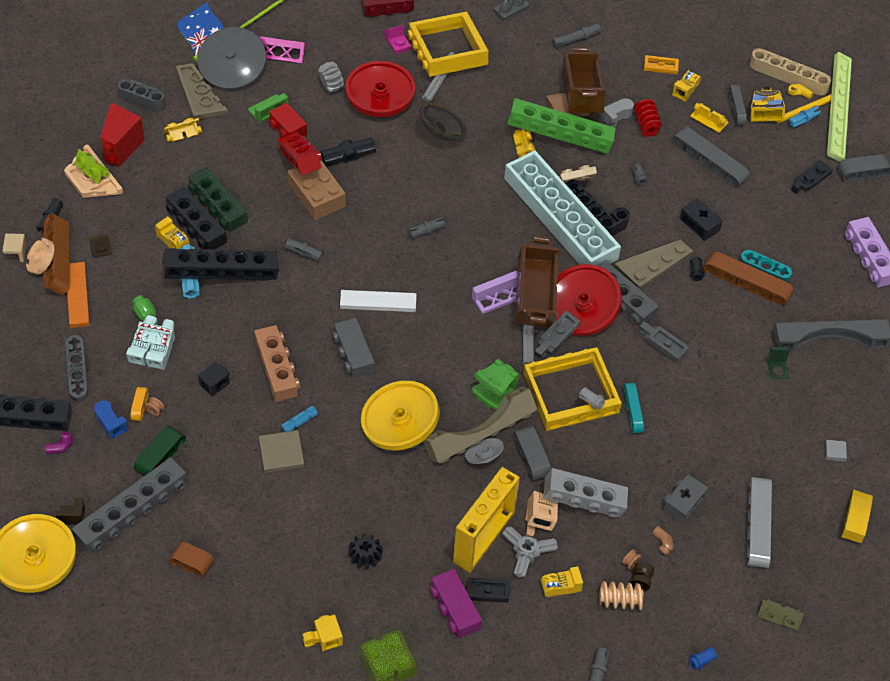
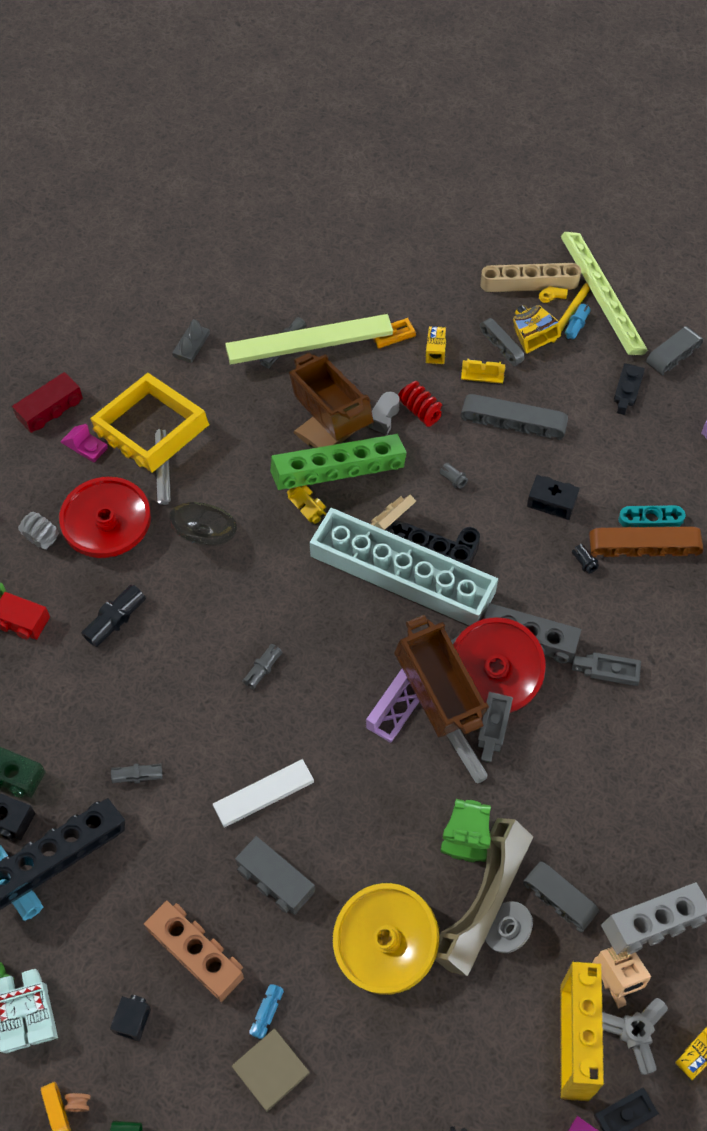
camera: 25 degrees left, 5 degrees up
(300, 153) = (63, 652): red brick -> none
(317, 191) = (105, 685): medium nougat brick -> none
(577, 414) = (578, 752): yellow window -> none
(595, 40) = (308, 339): none -> yellowish green tile
(595, 400) = (588, 790): light grey pin -> none
(633, 405) = (627, 765): teal beam -> none
(653, 263) = (534, 578): dark tan wing -> none

